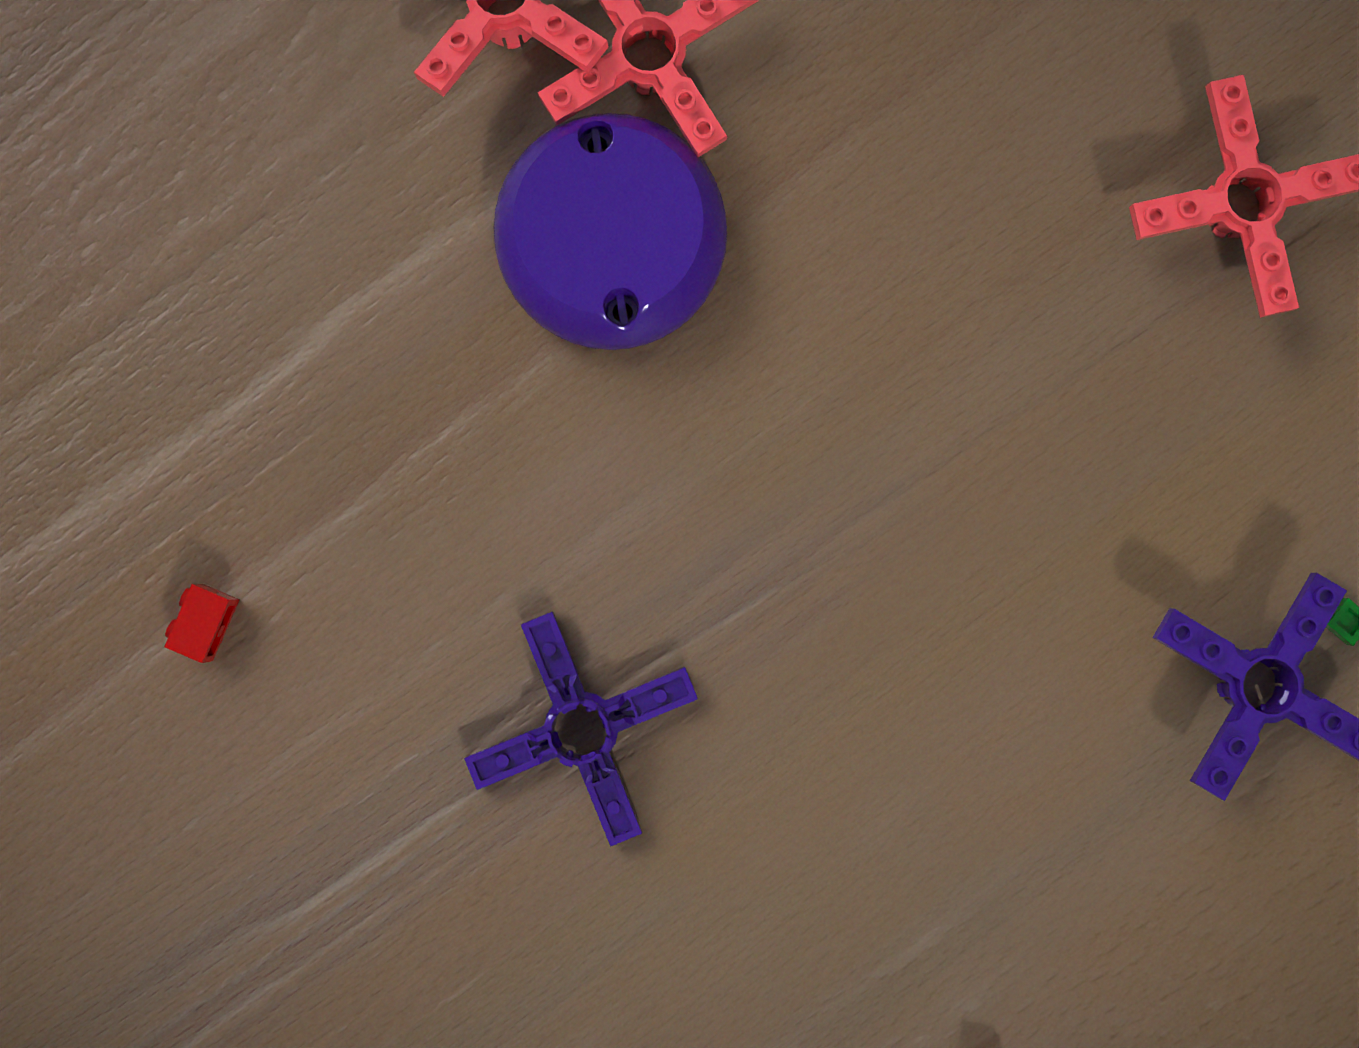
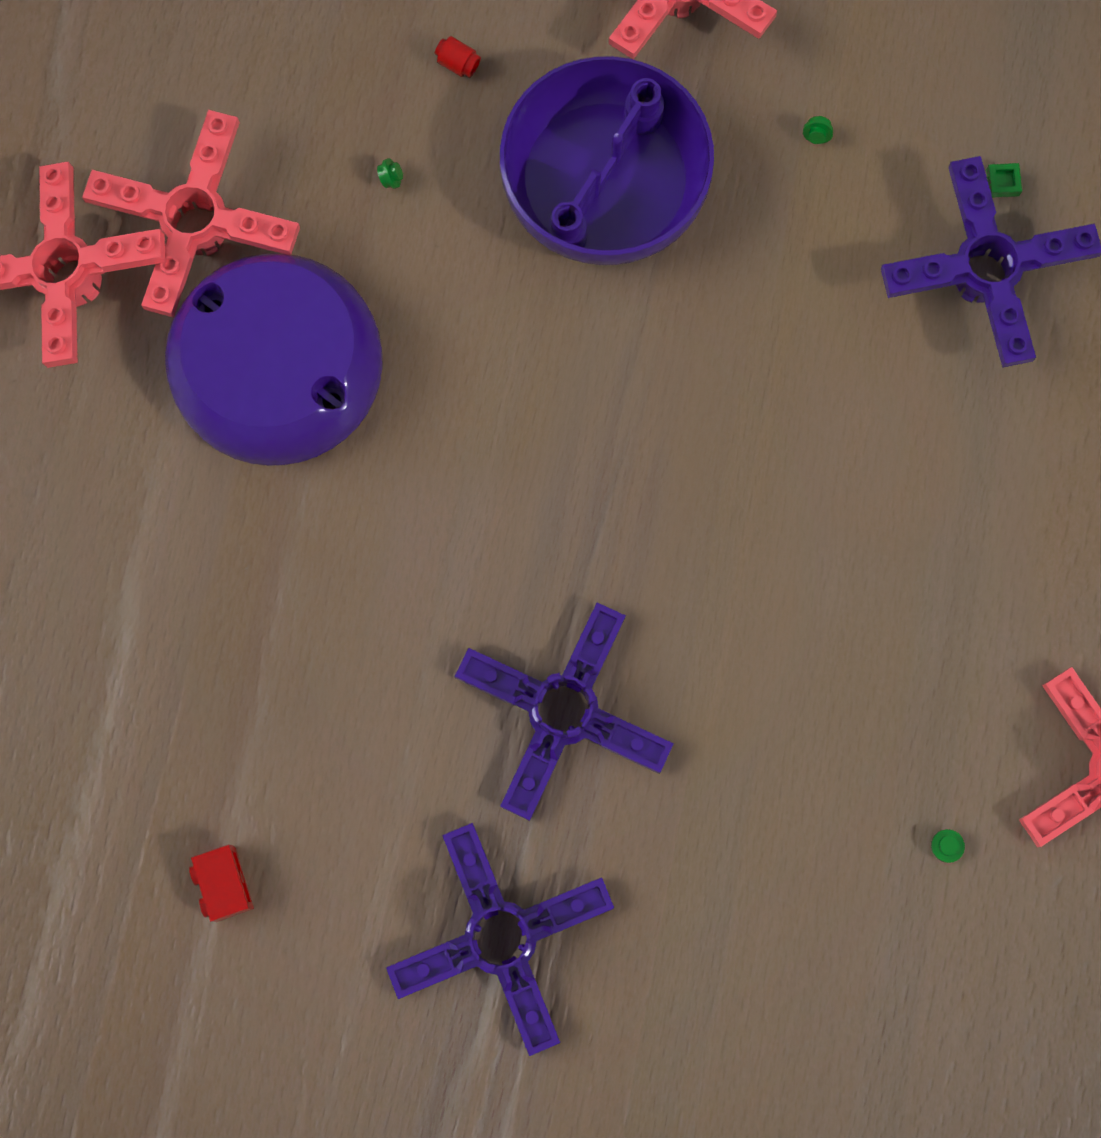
camera: 40 degrees left, 10 degrees down
(386, 826) = (515, 973): none -> dark purple piece
(845, 156) = (390, 173): none -> green plate
(994, 101) = (457, 57): none -> red brick
(1032, 309) = (604, 162): none -> dark purple cylinder
(1234, 438) = (818, 130): none -> green plate

